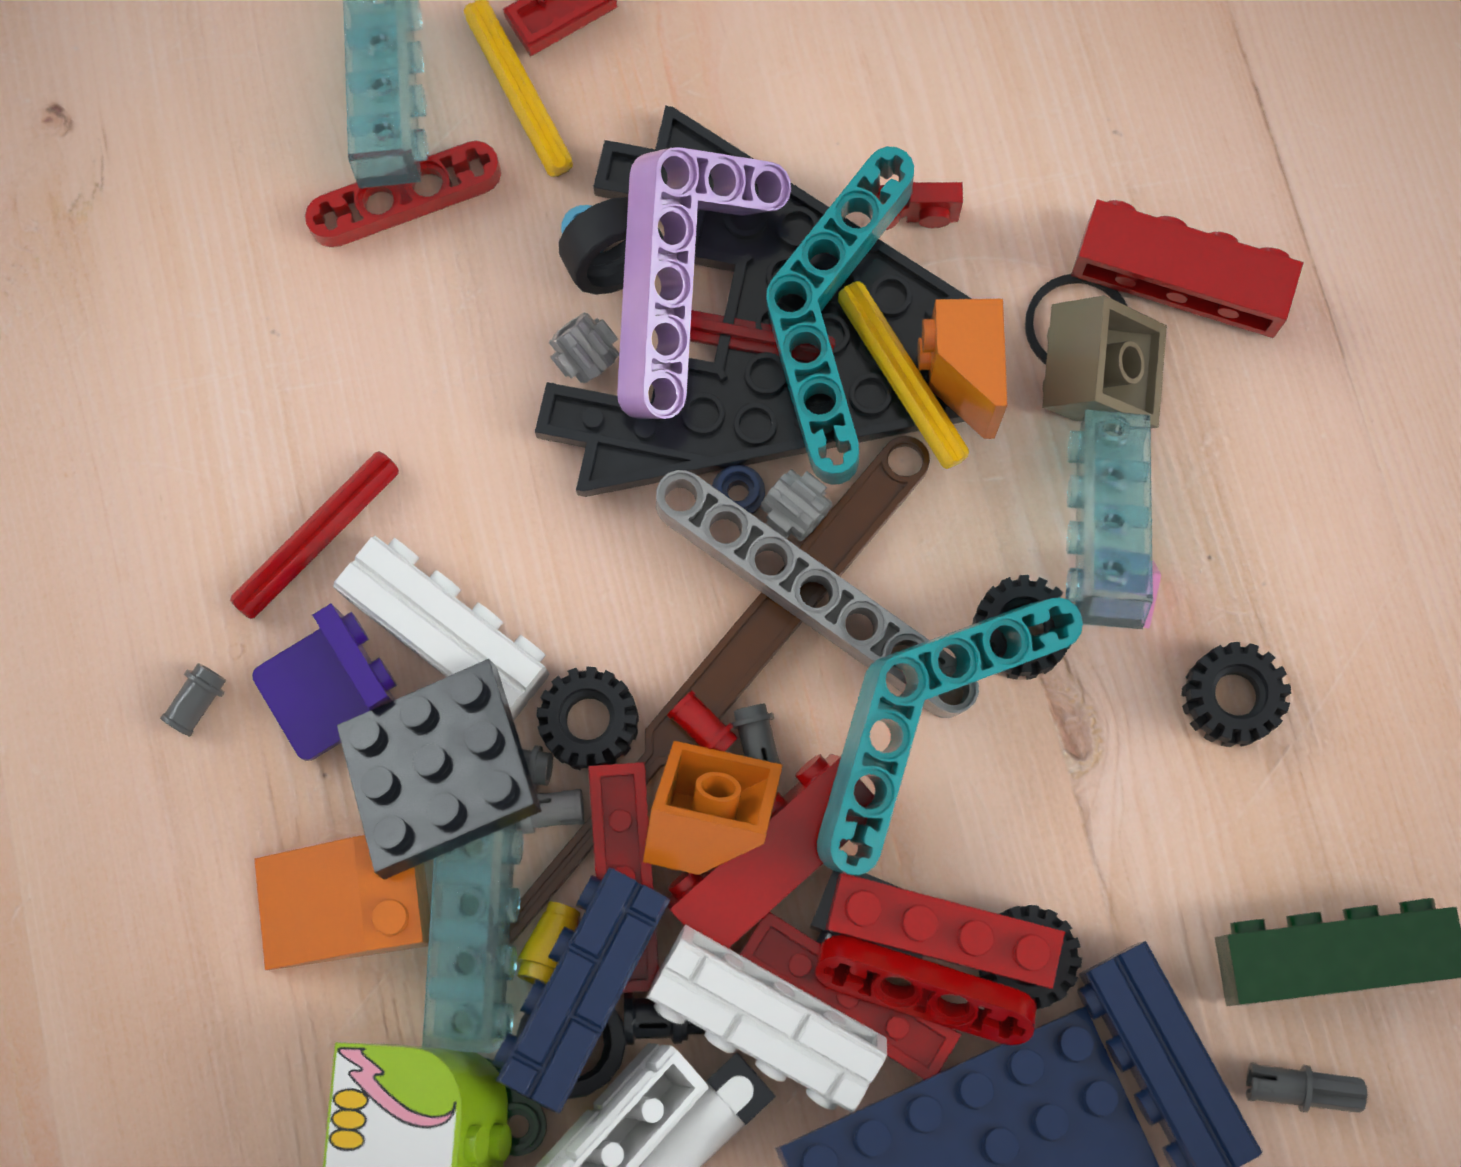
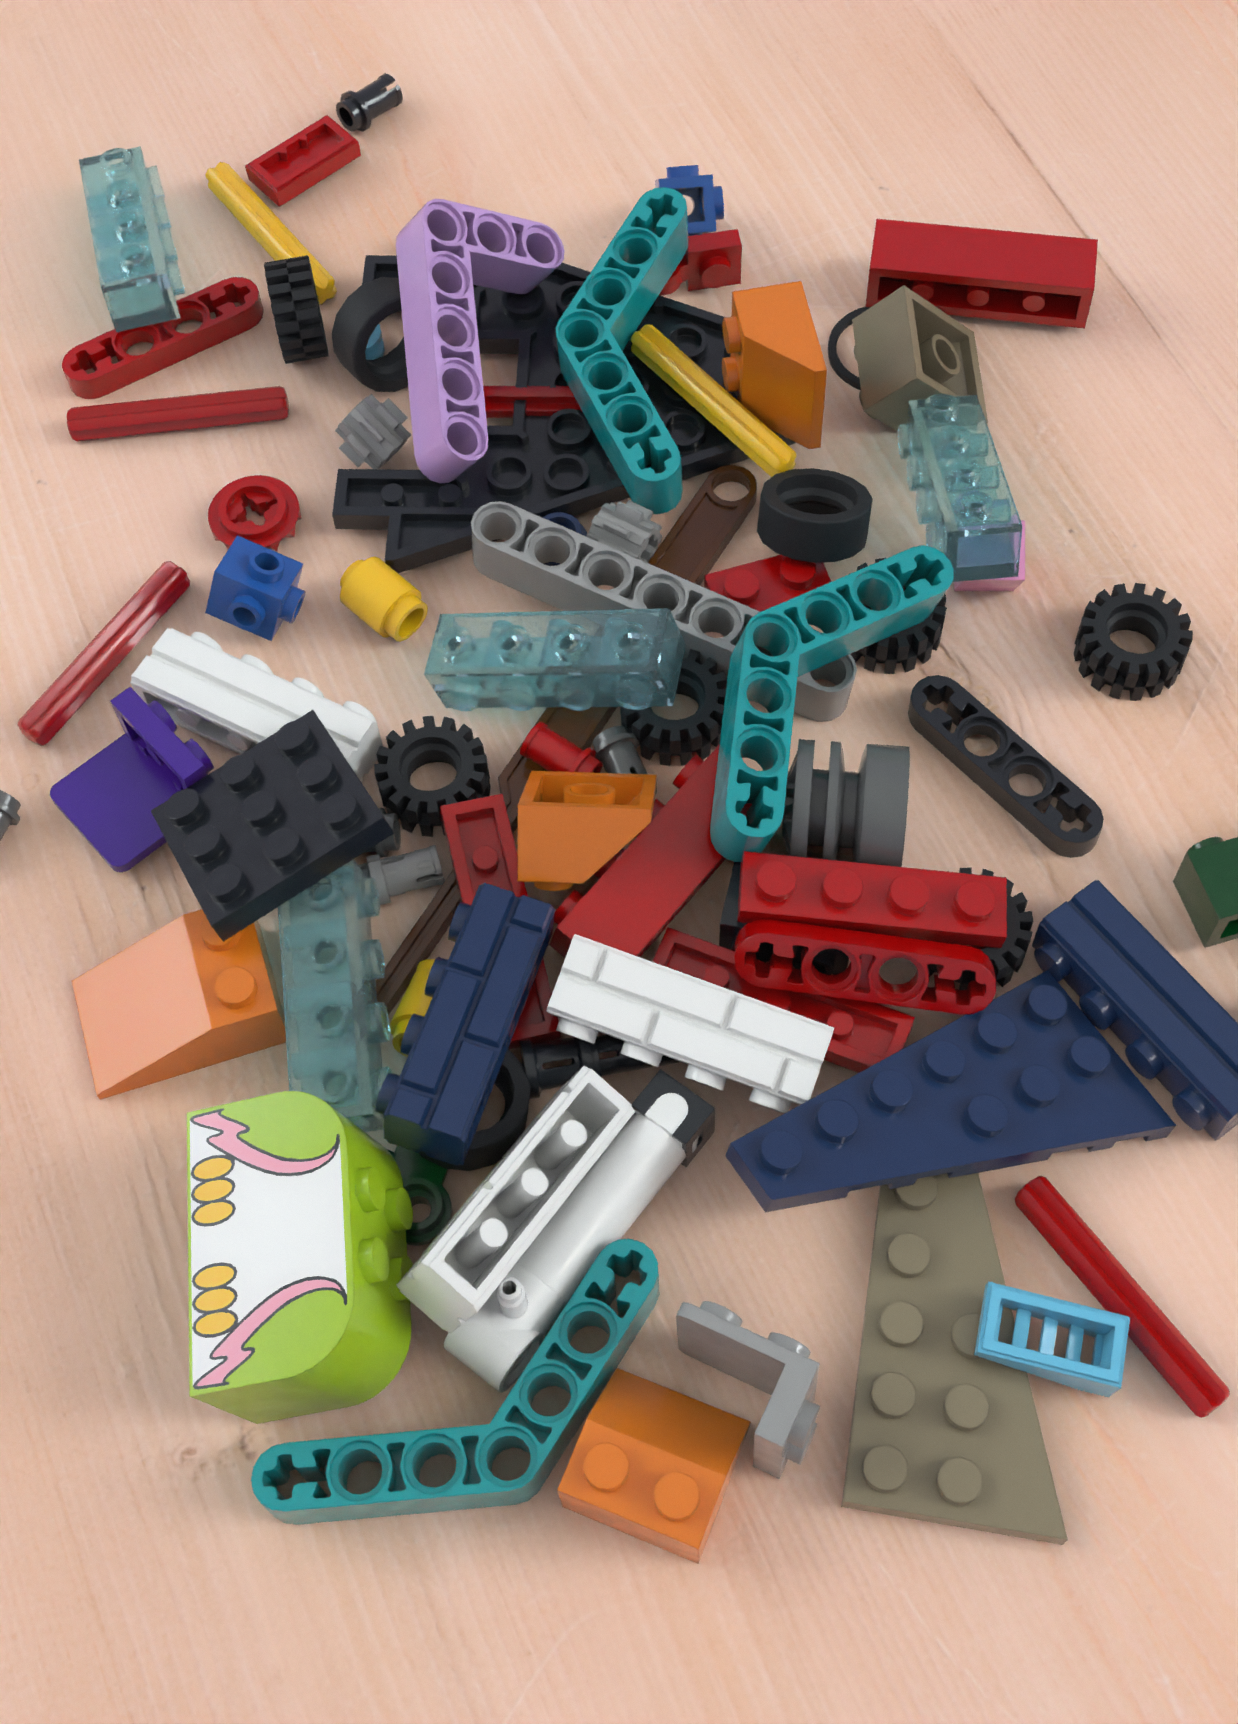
camera: 10 degrees left, 15 degrees down
(407, 284) = (178, 413): none -> red axle
(441, 404) = (265, 496): none -> red gear
(456, 504) = (255, 588): none -> blue brick
(529, 199) = (296, 309): none -> black tyre
(568, 527) = (382, 598): none -> yellow brick
(712, 635) = (556, 659): none -> clear light blue brick
(805, 654) = (687, 734): none -> black tyre
(921, 574) = (767, 581): none -> red plate
(922, 132) = (706, 198): none -> blue brick
(944, 835) = (848, 808): none -> dark grey wheel
(985, 486) = (814, 515): none -> black tyre
(1100, 791) = (1011, 758): none -> black beam

